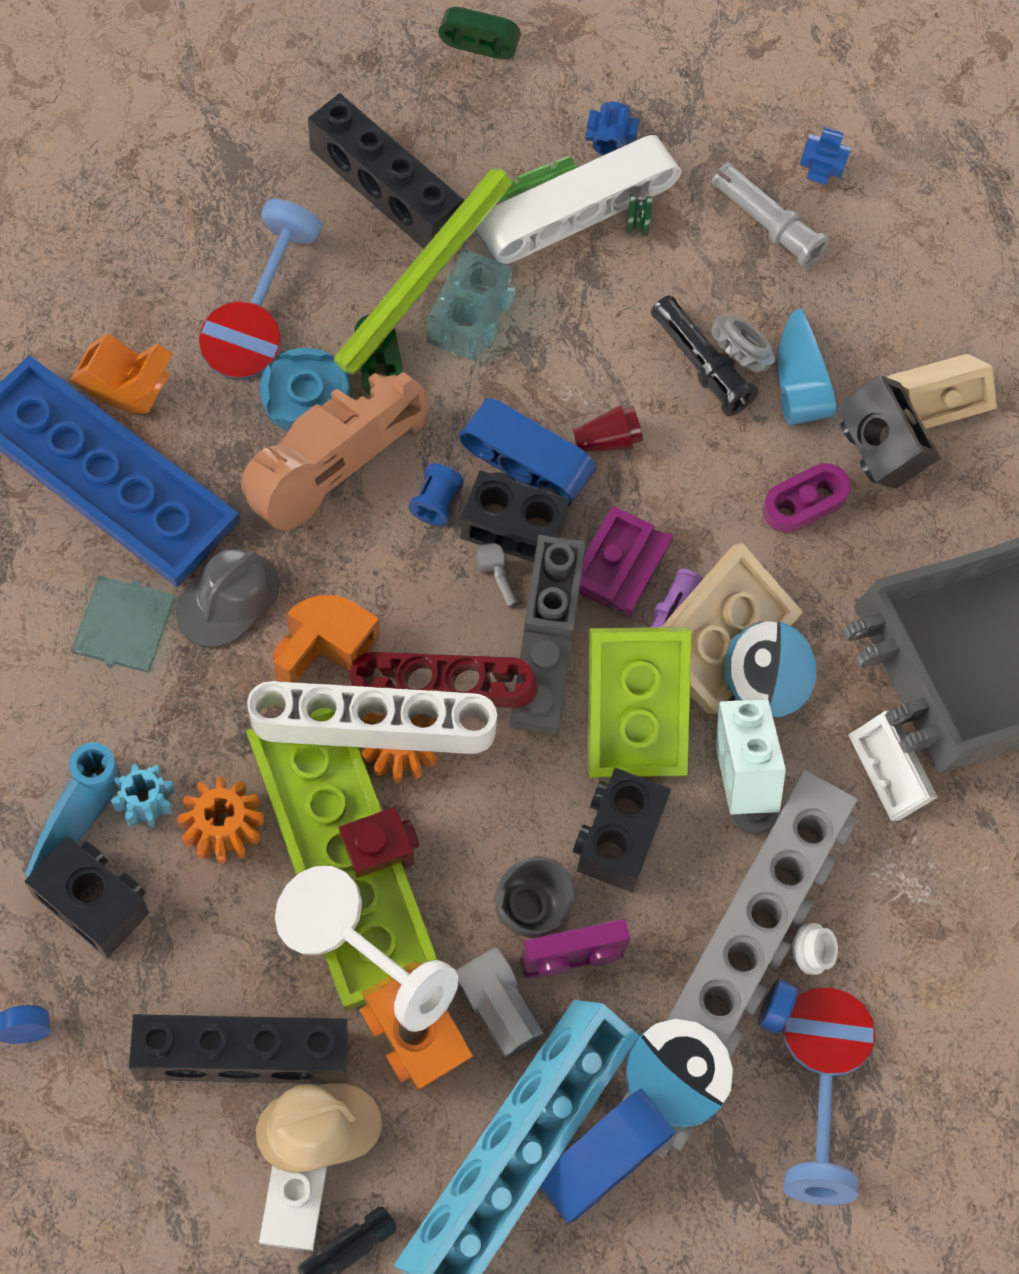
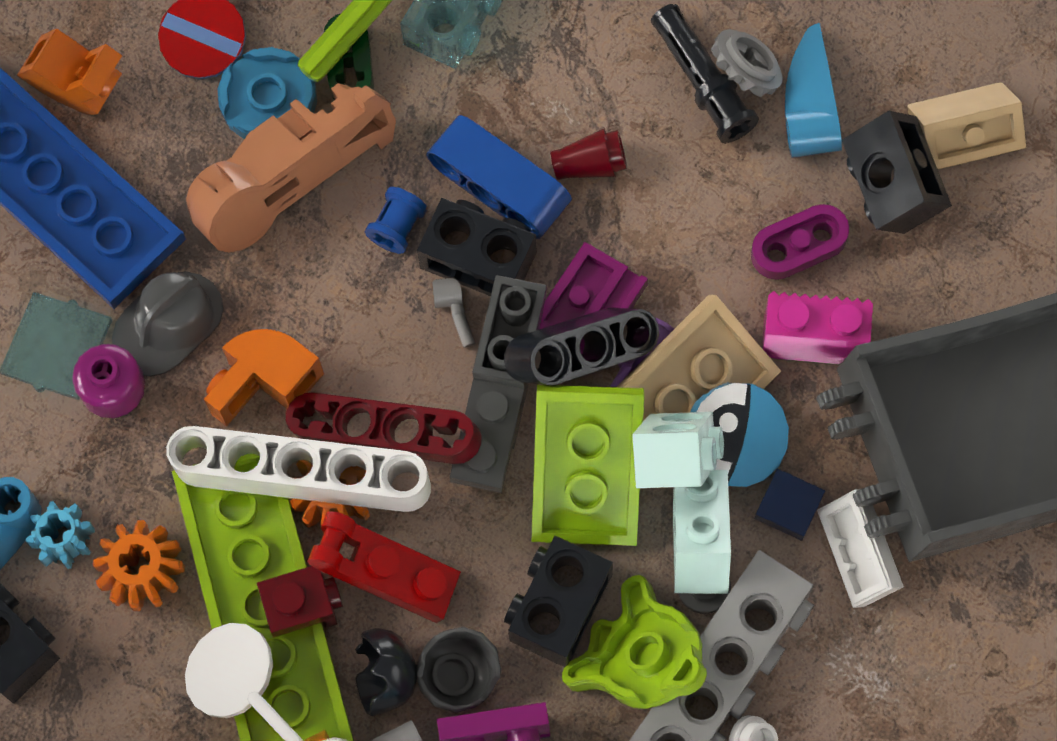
camera: 15 degrees right, 5 degrees up
(179, 650) = (108, 381): none -> magenta head
(456, 807) = (384, 568): none -> red plate
(468, 905) = (390, 672): none -> black hair
(624, 593) = (561, 345): none -> black beam
(706, 873) = (643, 654): none -> lime tile
(726, 679) = (676, 449): none -> light aqua brick
(822, 731) = (789, 504): none -> dark blue tile
(830, 570) = (815, 327): none -> dark pink brick

